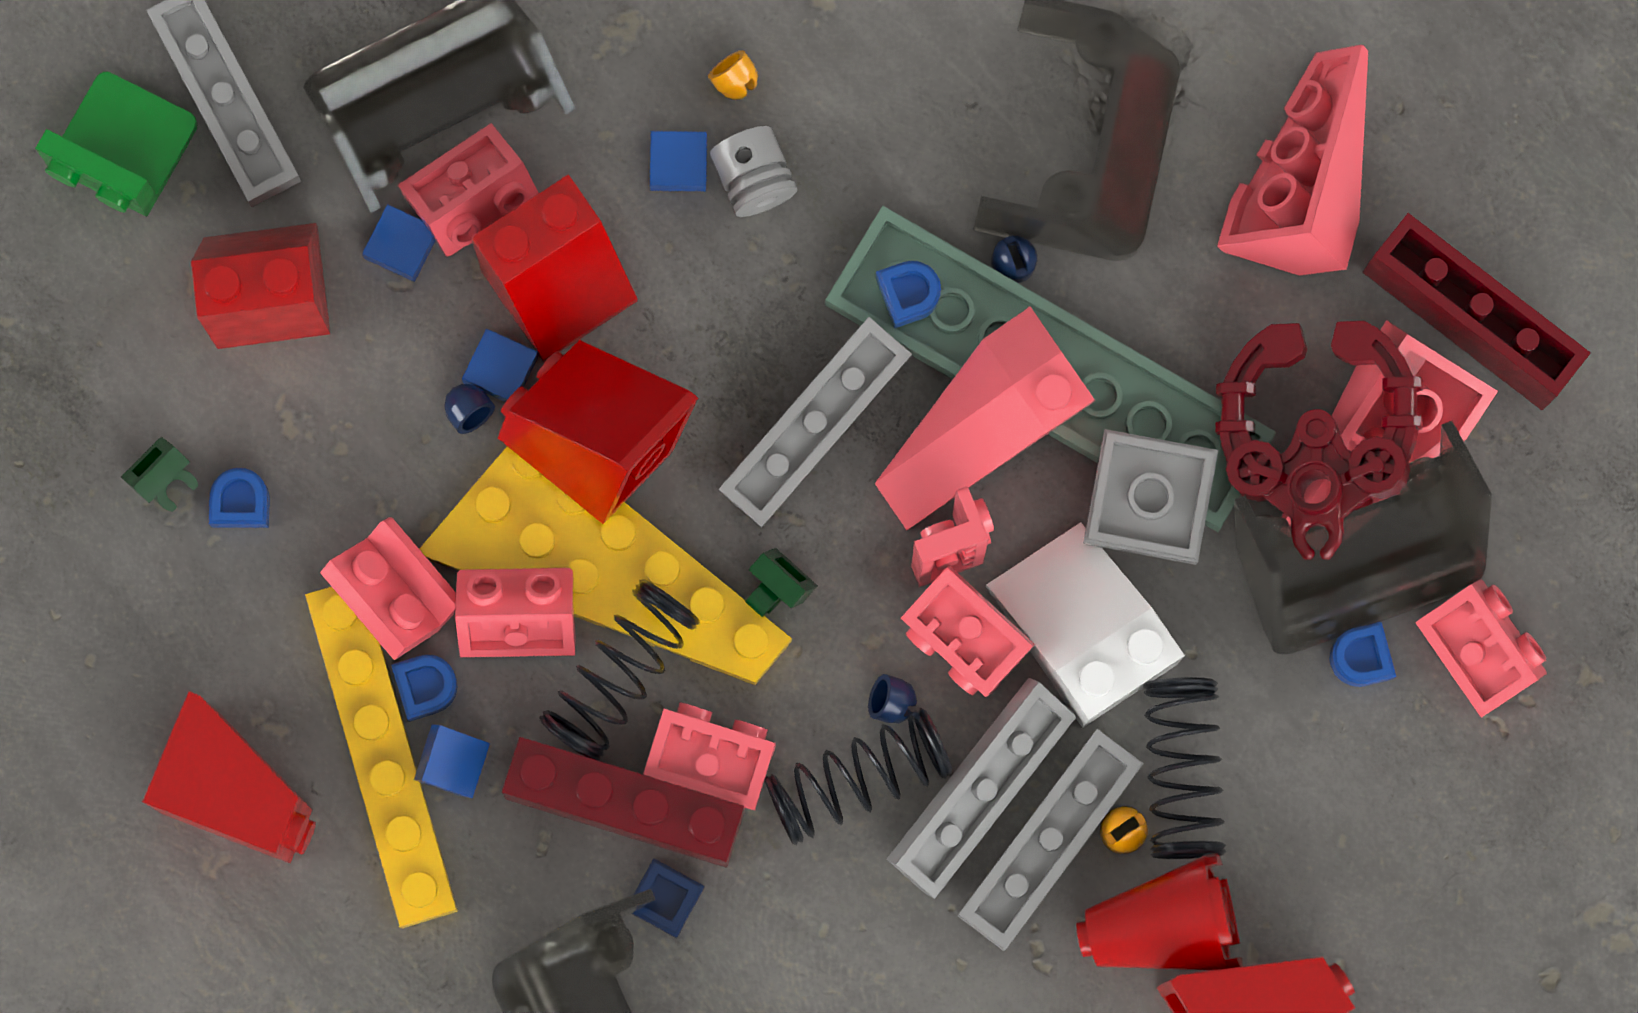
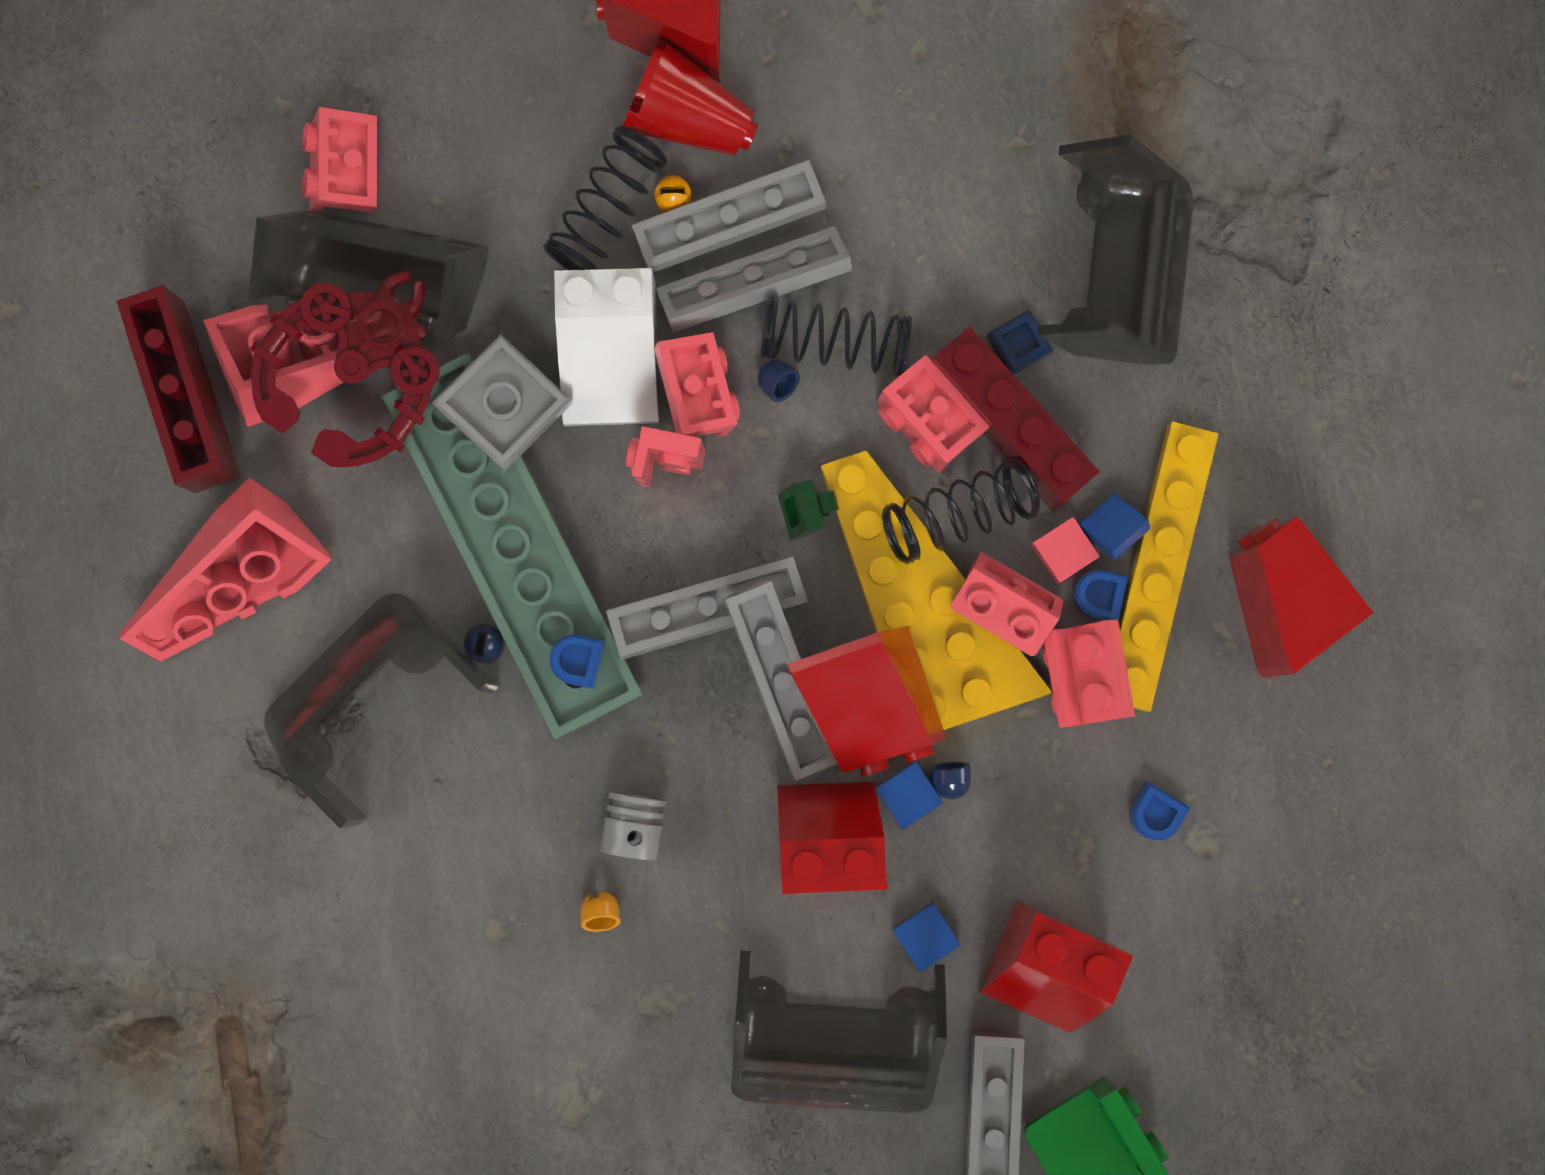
camera: 145 degrees left, 5 degrees up
(156, 470) = (1208, 870): dark green tile -> none
(468, 189) = (852, 945): coral bracket -> none
(488, 707) = (1065, 550): none -> coral tile
(678, 161) = (682, 871): blue tile -> none
(722, 409) = (768, 652): none -> light grey plate
(992, 410) = (575, 530): coral wedge -> none
(1362, 656) = (429, 210): blue tile -> none

